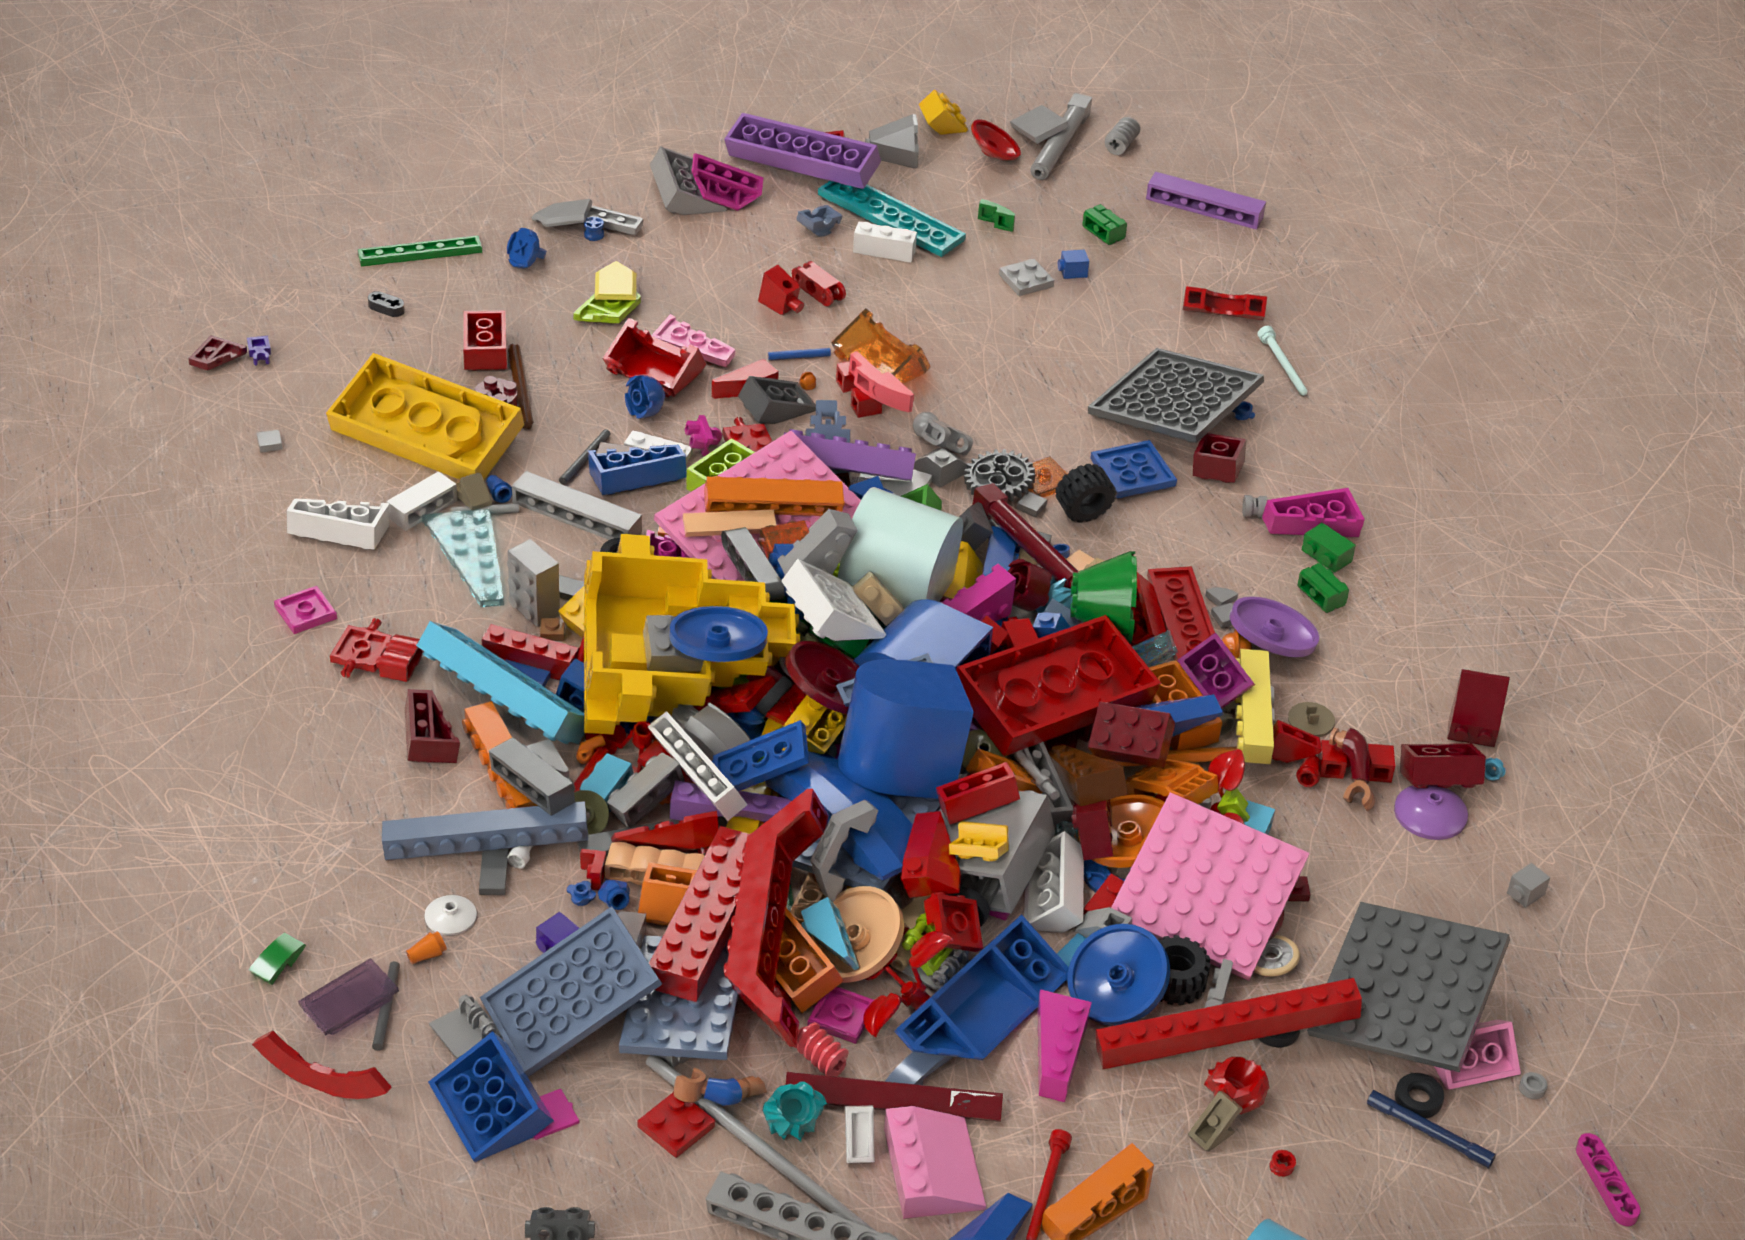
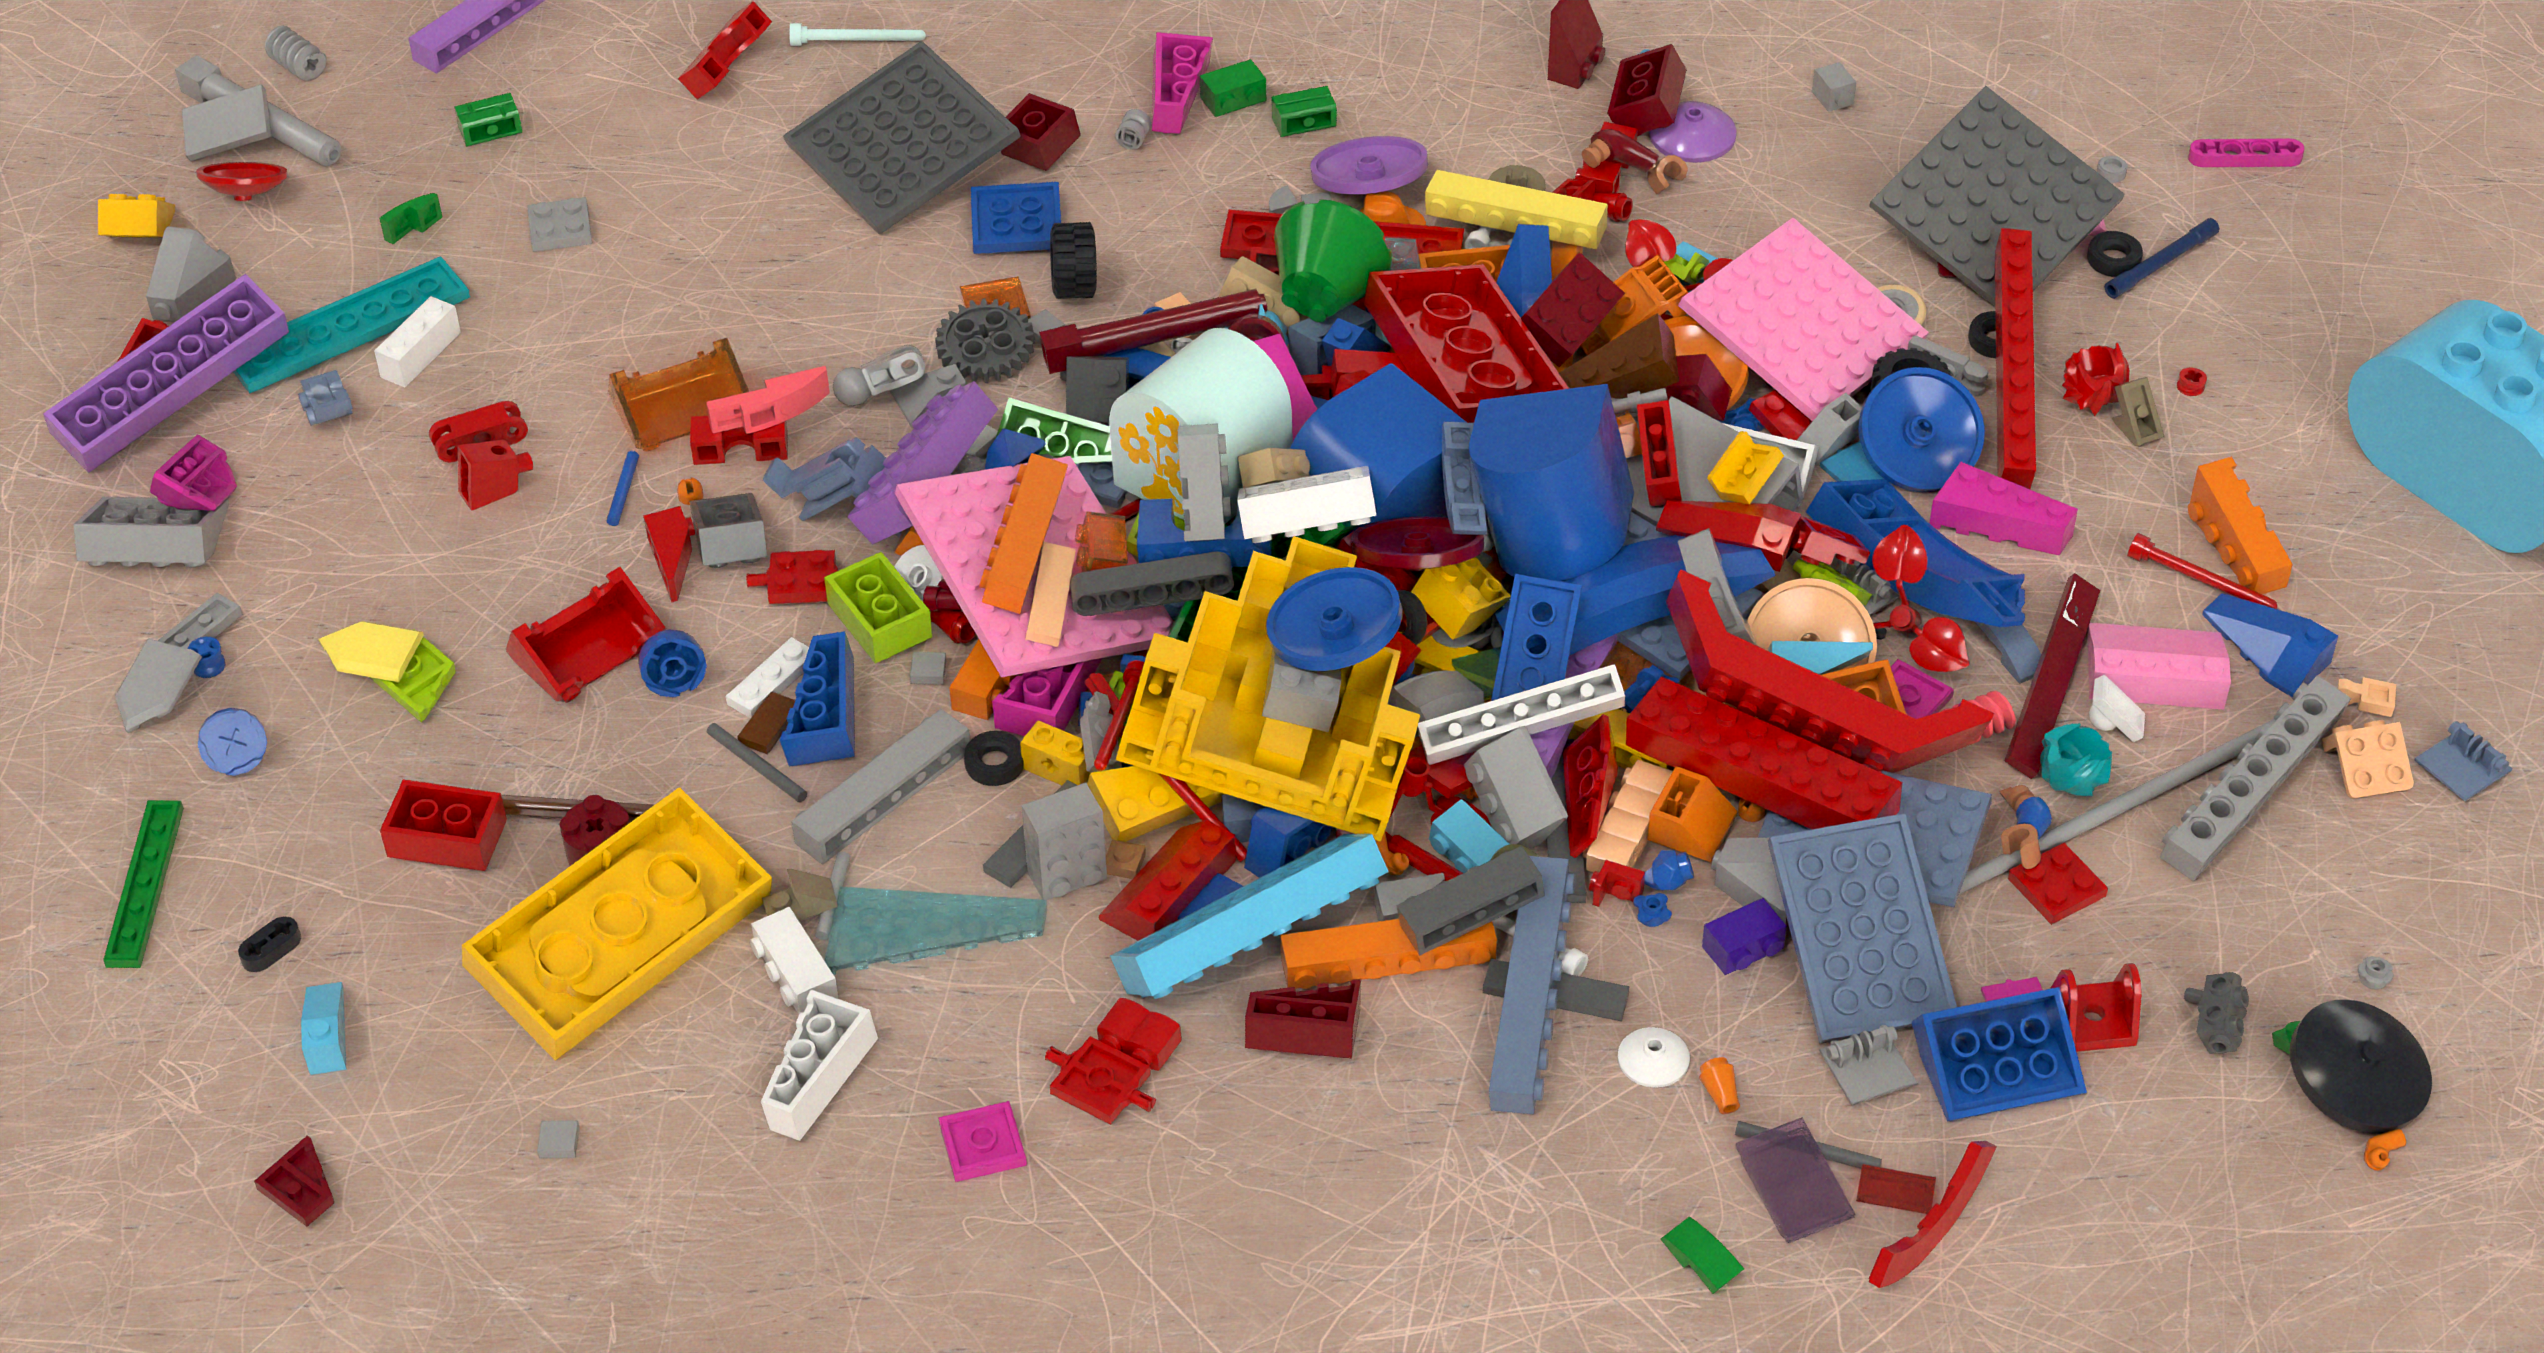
camera: 70 degrees left, 5 degrees up
(259, 349) = (316, 1121): plate -> none
(324, 334) = (324, 1028): none -> medium azure slope
(357, 1052) = (1896, 1189): none -> clear red tile
(499, 489) = (801, 861): blue cone -> none
(543, 1137) = (2113, 1001): none -> red hose
(682, 335) = (547, 592): bright pink wing -> none
(702, 435) = (774, 619): dark pink hips -> none
(1073, 264) = (562, 168): blue brick -> none
(1216, 671) = (1463, 219): magenta slope -> none

